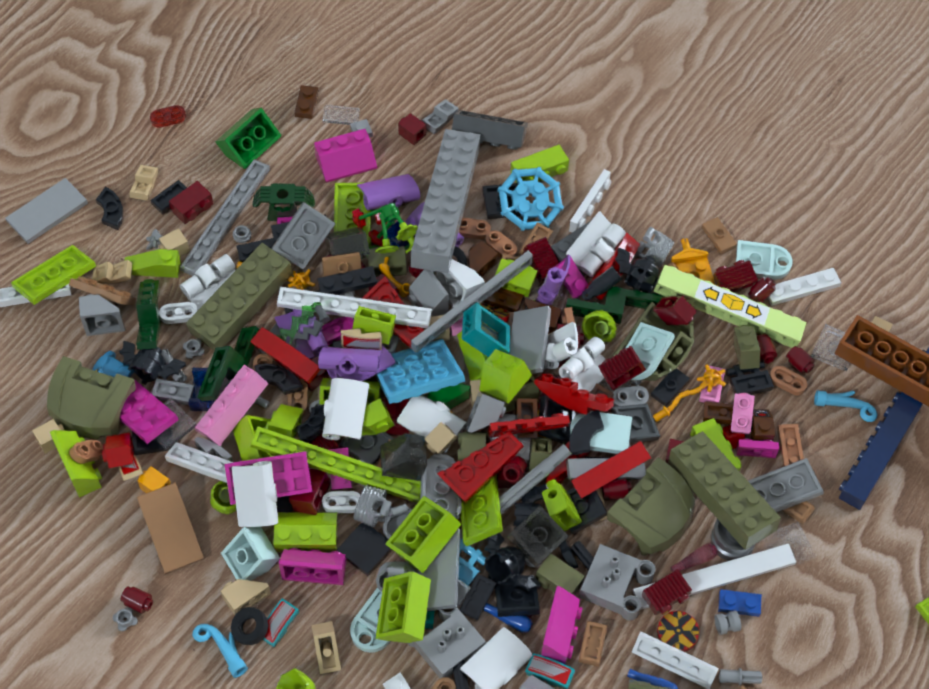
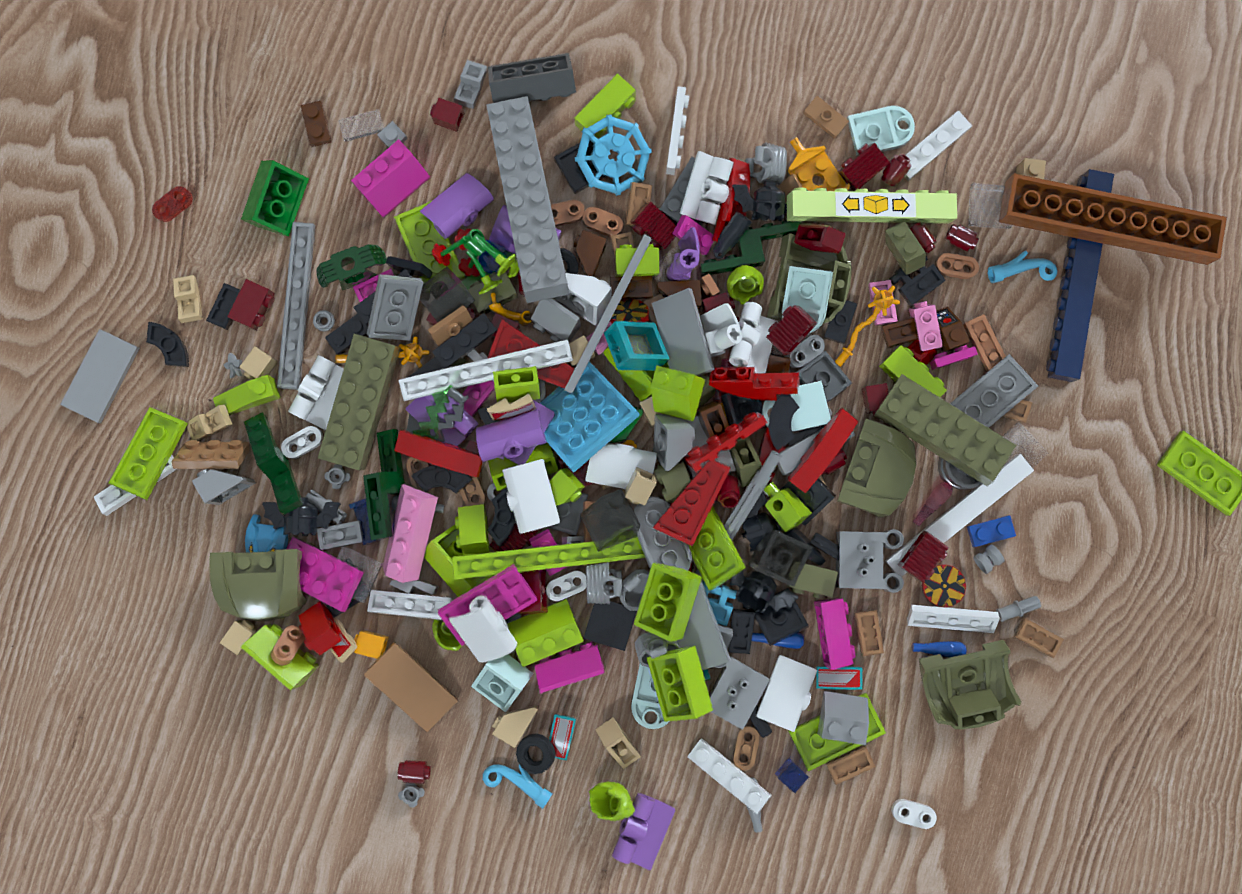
camera: 20 degrees left, 25 degrees up
(337, 218) = (412, 267): none -> black plate

